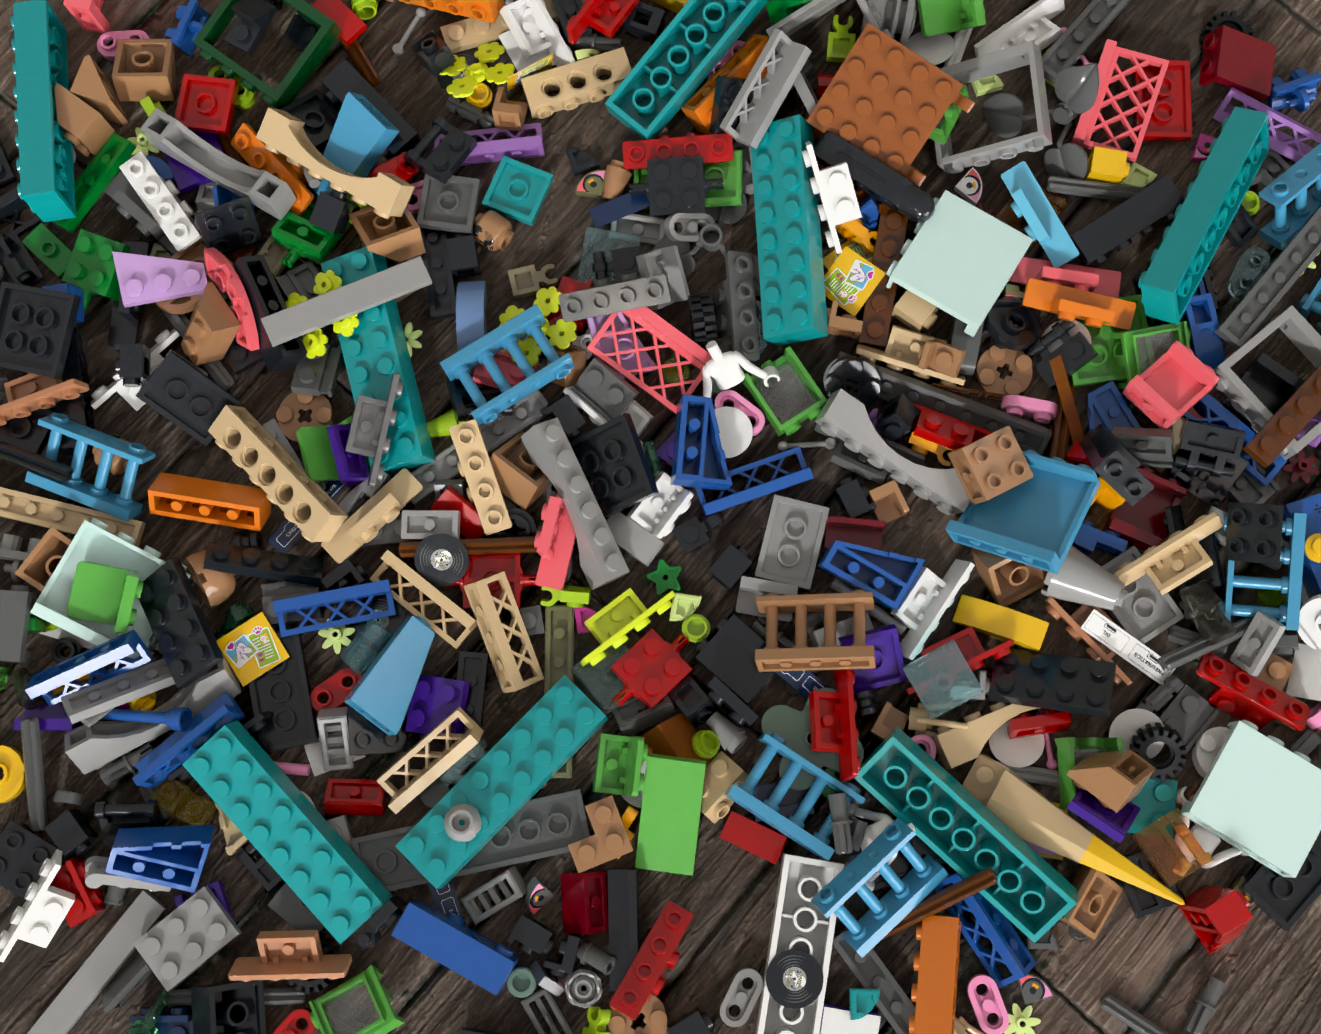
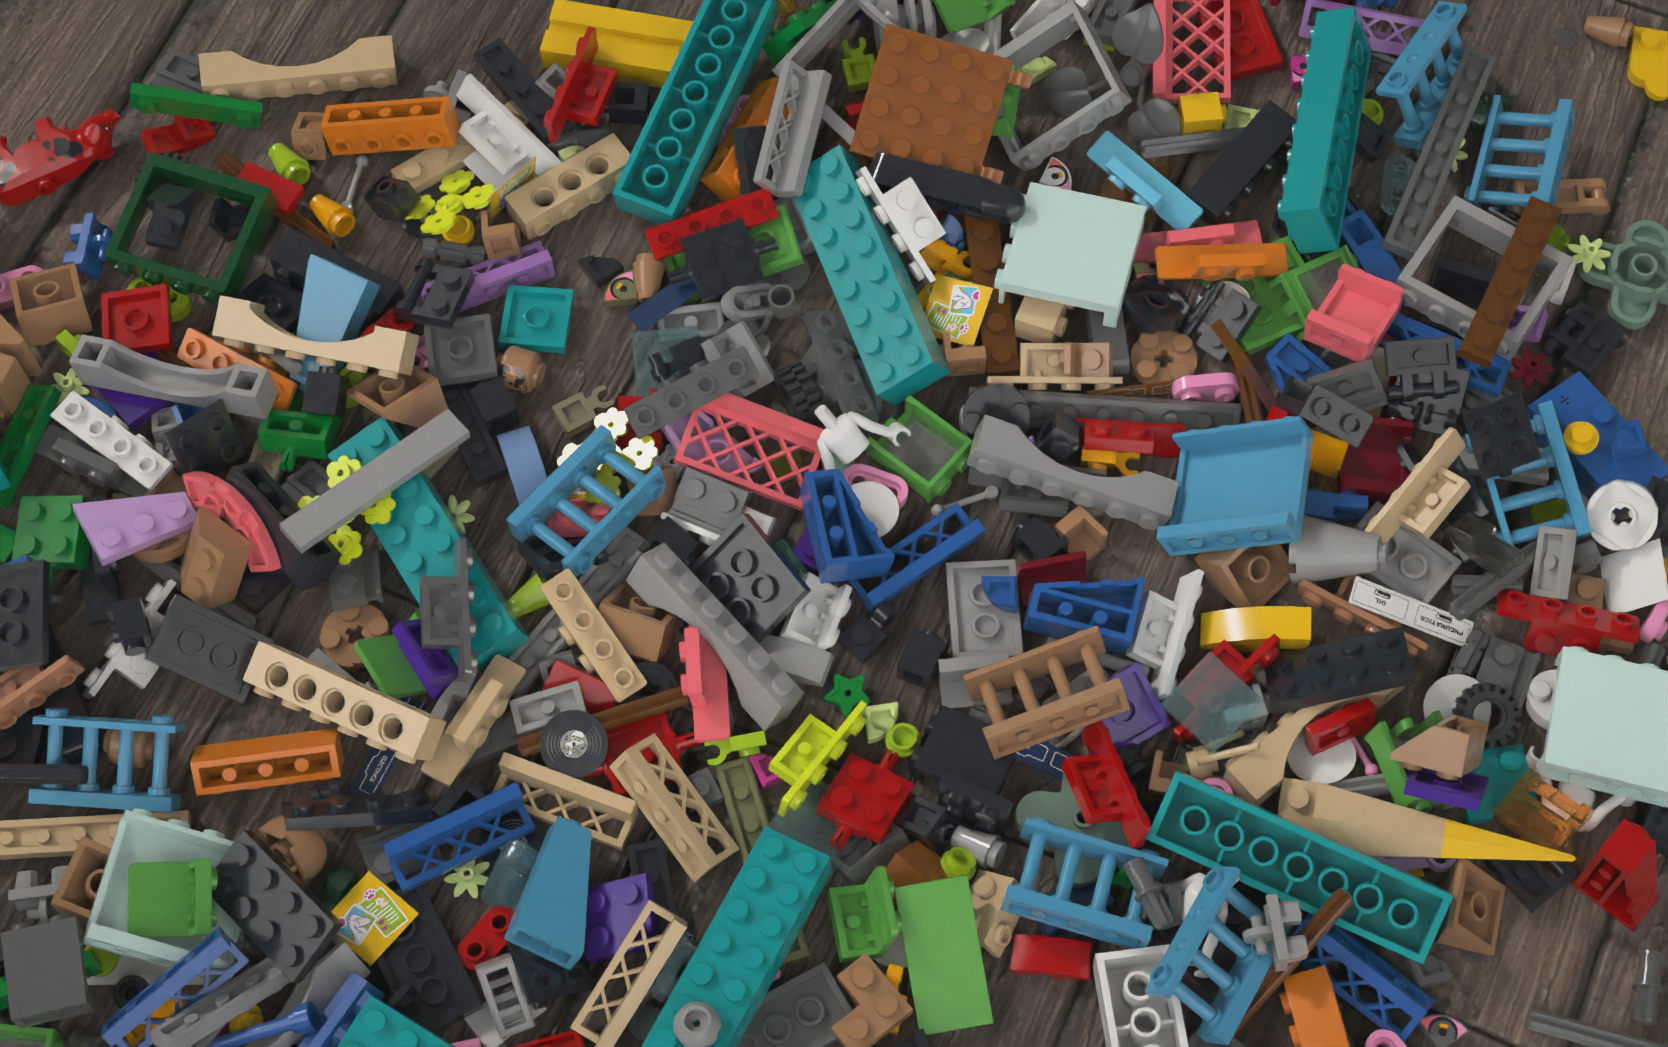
camera: 20 degrees left, 15 degrees down
(384, 55) = (332, 215): none -> light orange cone
(809, 533) = (1001, 591): none -> blue tile
(928, 902) = (1277, 916): none -> light grey hips
(990, 465) = (1182, 453): medium nougat bracket -> none

